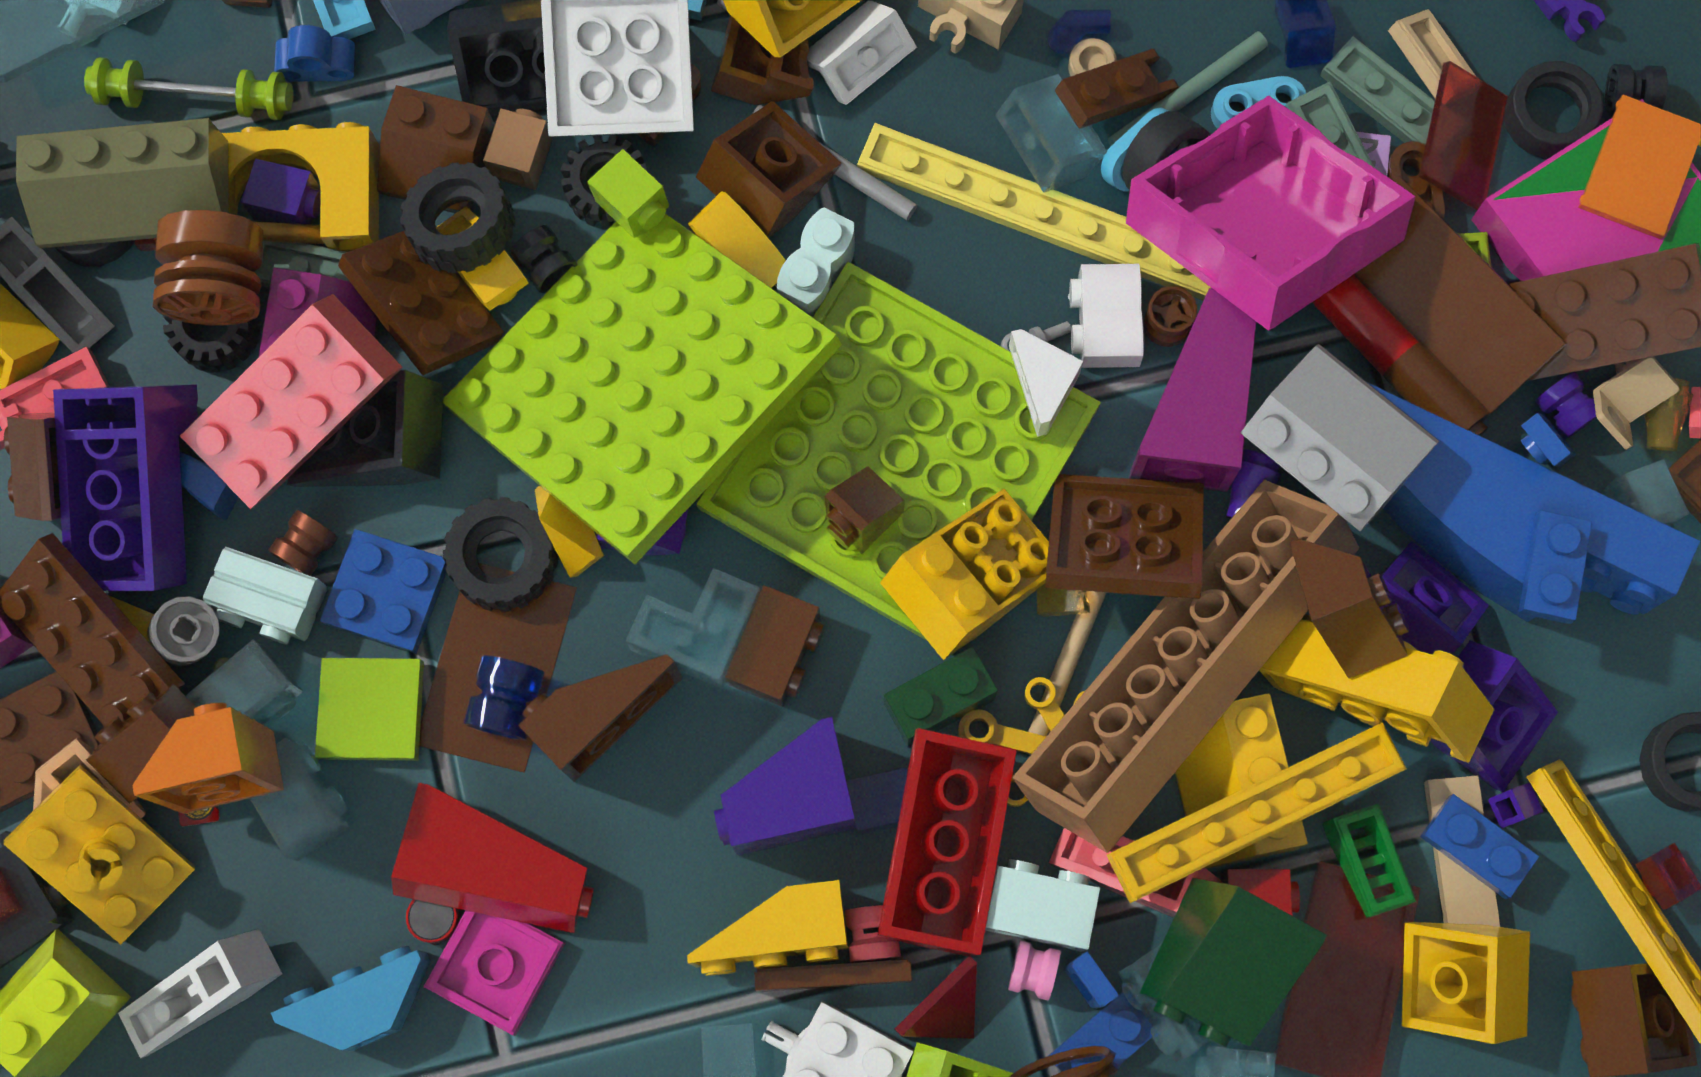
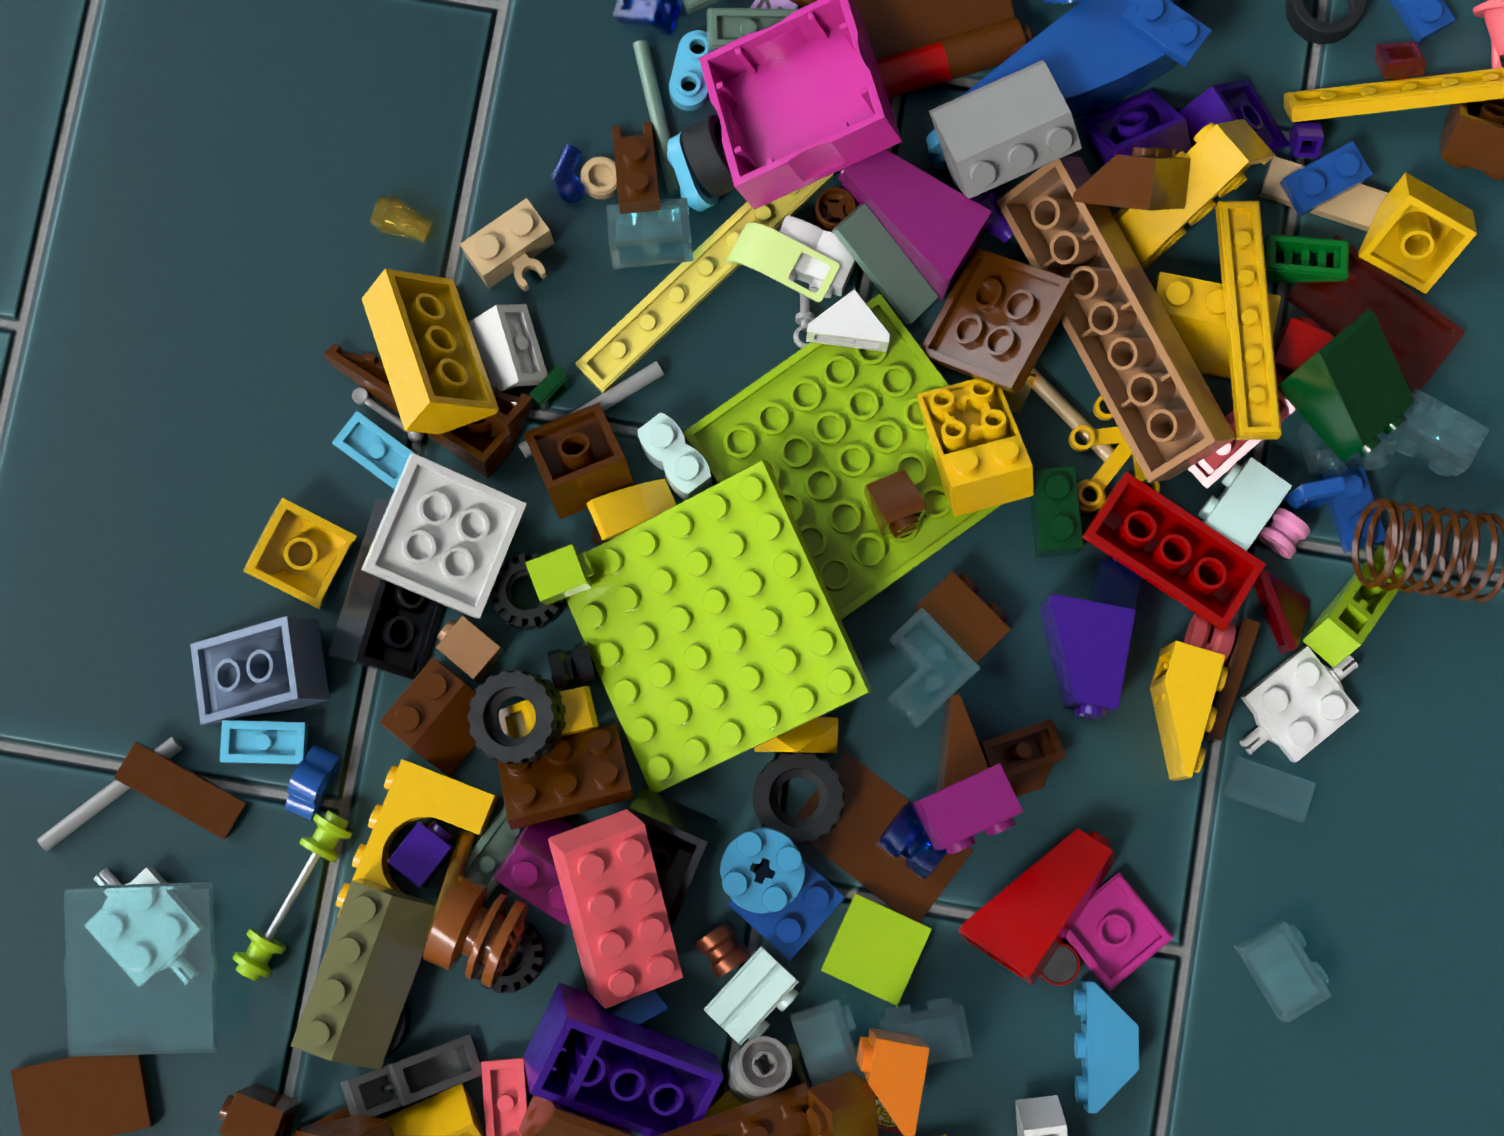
camera: 70 degrees left, 5 degrees up
(380, 524) = (740, 880): none -> dark azure plate
(529, 703) = (967, 808): none -> magenta brick
(642, 775) = (1025, 755): none -> reddish brown slope
(834, 108) = (550, 388): none -> dark green tile
(1086, 270) = (776, 256): none -> yellowish green piece
(1135, 391) = (885, 263): none -> sand green tile

